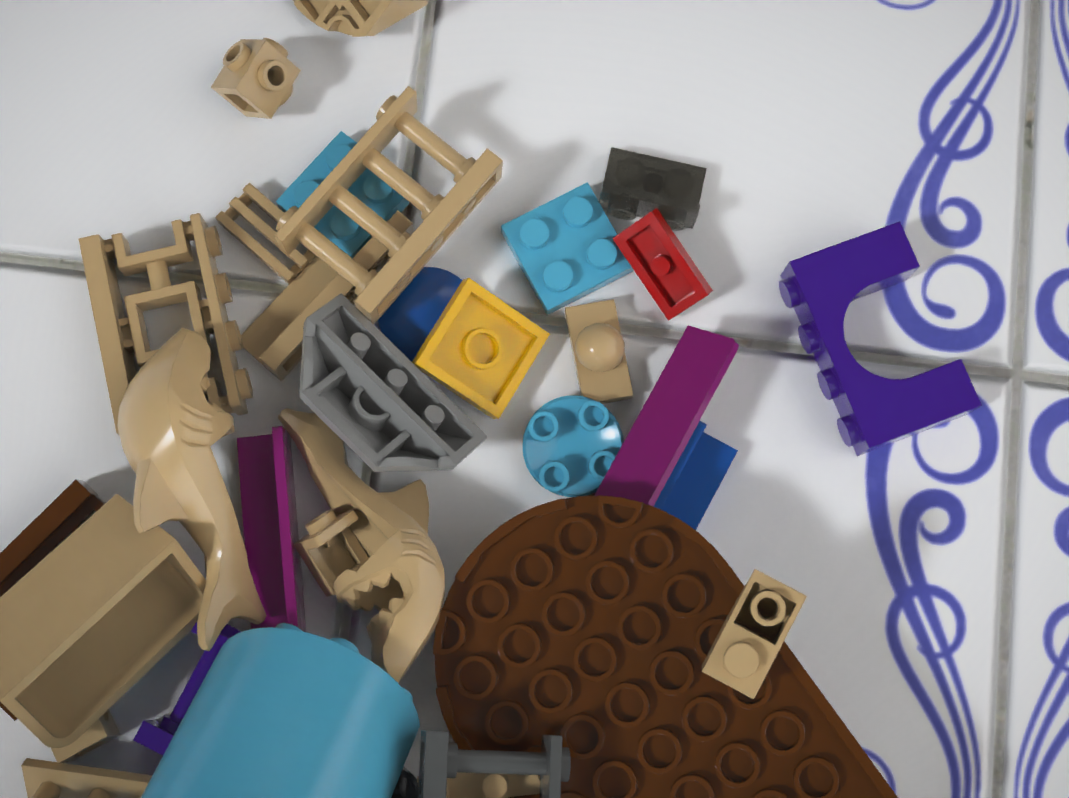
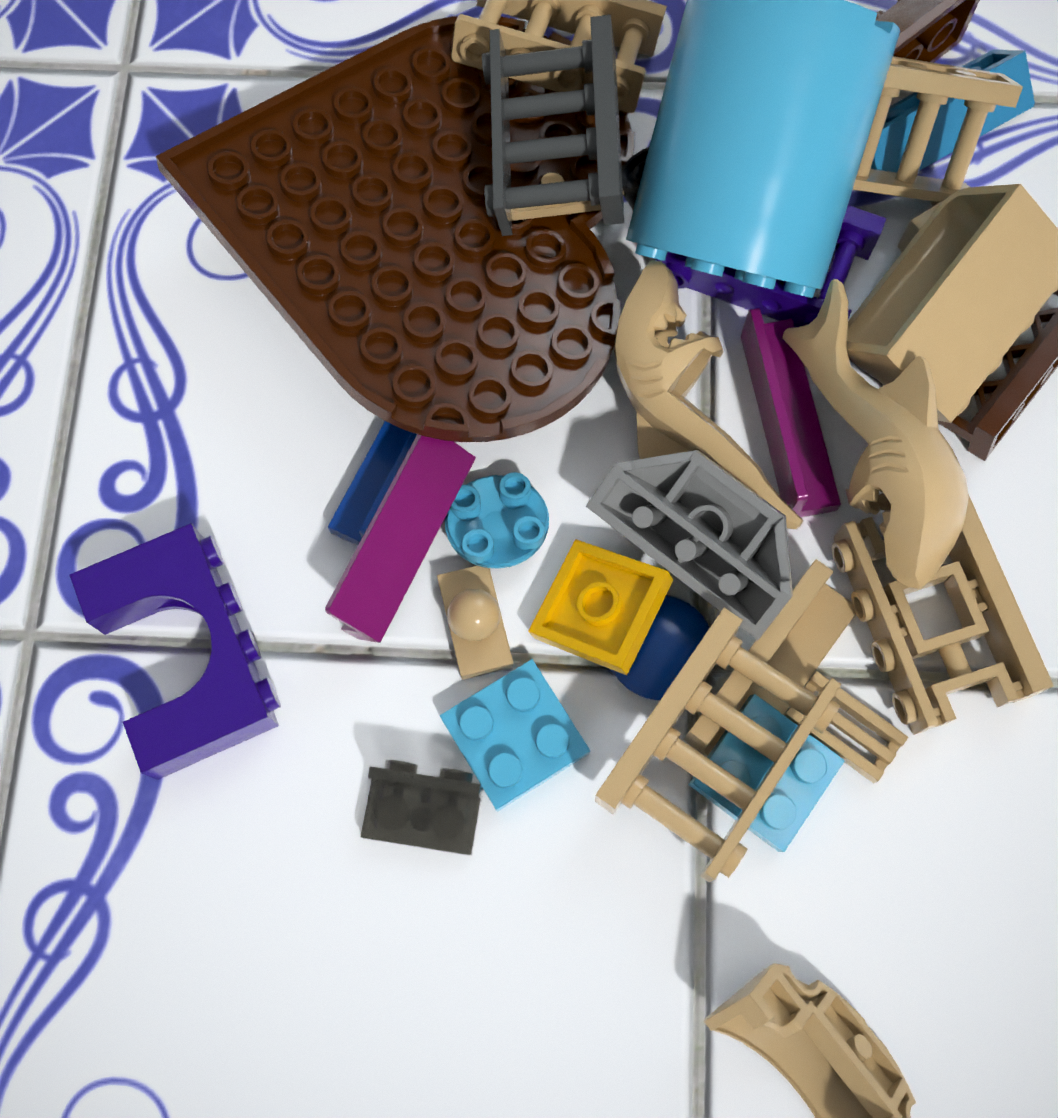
camera: 175 degrees left, 5 degrees down
(256, 77) = (894, 905): tan brick -> none
(331, 548) = (727, 398): tan bracket -> none
(662, 264) = (409, 713): red plate -> none
(753, 633) = (317, 286): tan slope -> none

